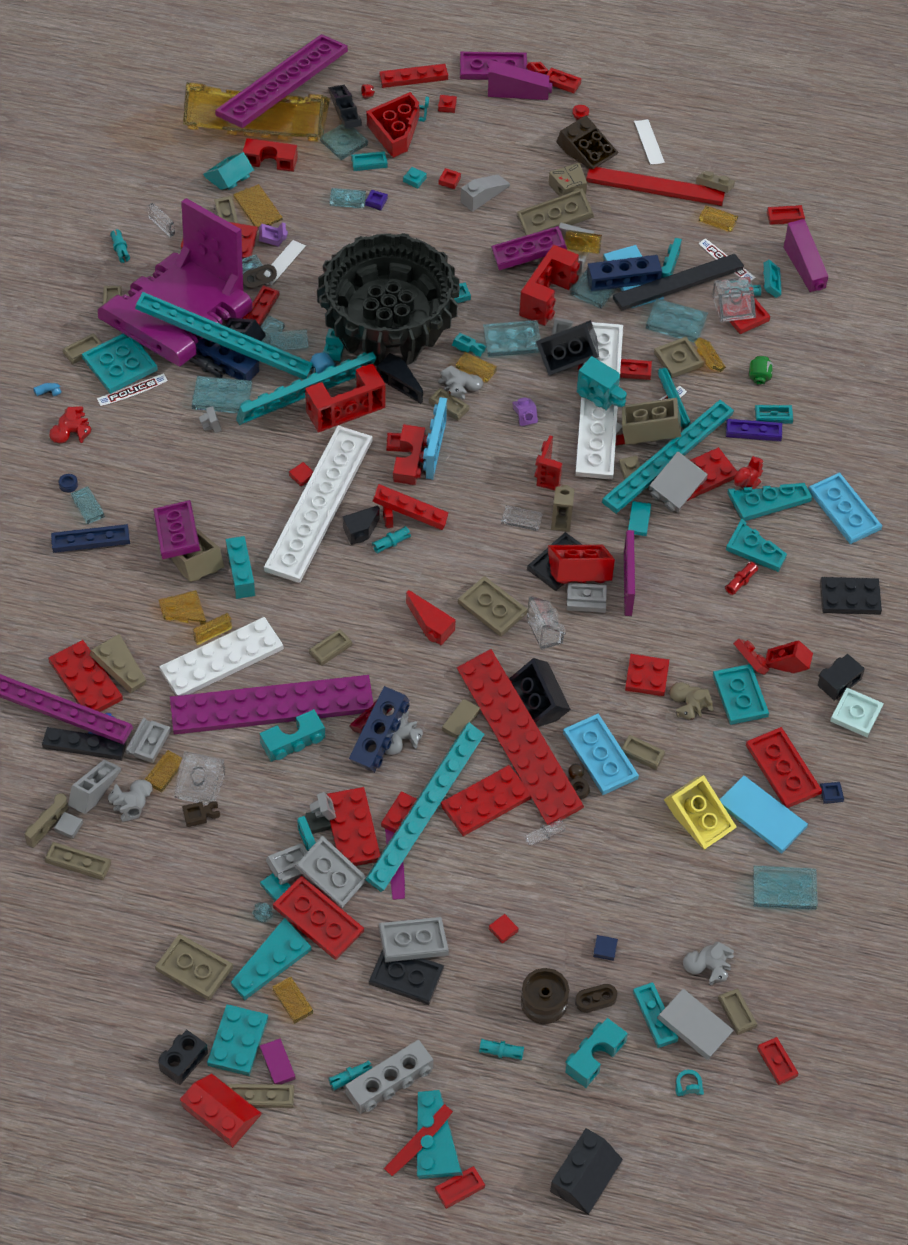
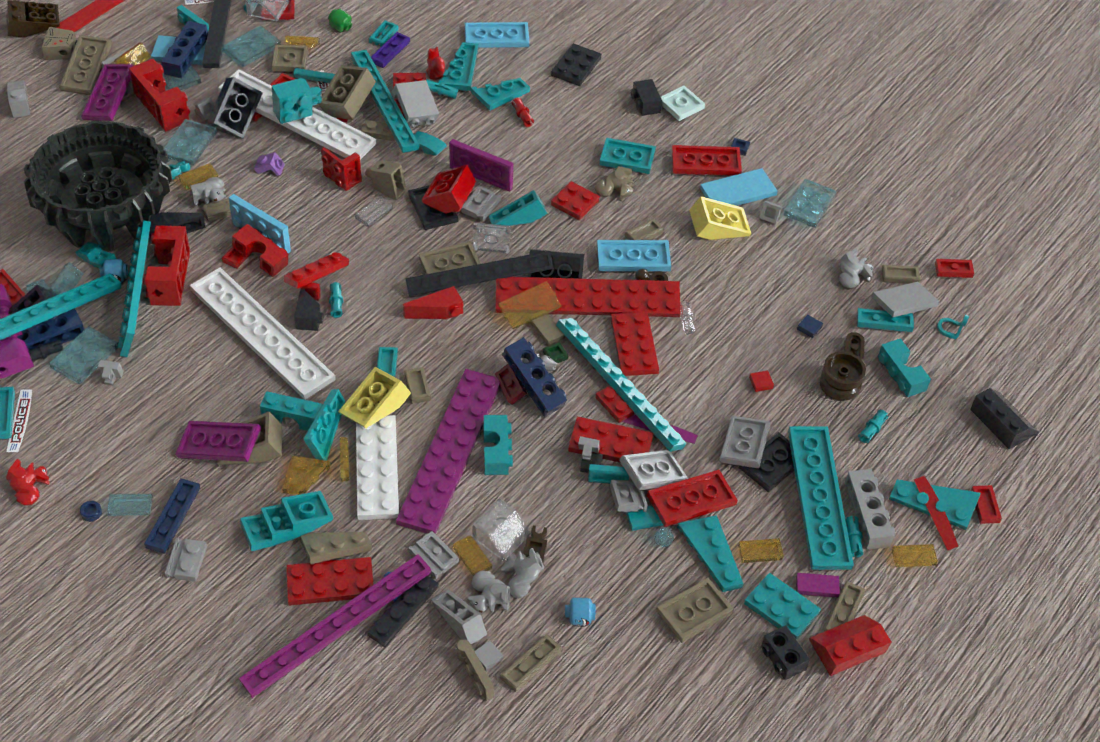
camera: 65 degrees left, 5 degrees down
(55, 569) = (186, 559): none -> light grey plate
(125, 617) = (286, 521): none -> teal slope
(145, 876) = (580, 611): none -> dark azure head
(165, 815) = (526, 569): none -> light grey animal
(237, 597) = (324, 427): none -> teal wing
(287, 620) = (375, 398): none -> light yellow slope
(301, 474) = (219, 332): red tile -> none
(341, 613) = (388, 360): none -> teal tile
(358, 1138) = (914, 555): none -> clear yellow tile
(378, 1026) = (820, 498): none -> teal plate
(433, 739) = (556, 352): none -> dark green tile
(474, 691) = (529, 305): none -> clear yellow piece
(486, 634) = (479, 273): none -> black tile
(594, 633) = (521, 211): none -> teal slope
(717, 485) = (442, 89): none -> teal pin
(744, 853) = (770, 212): none -> light grey tile
(747, 650) = (592, 134): red plate -> none
(789, 657) = (612, 116): red slope -> none

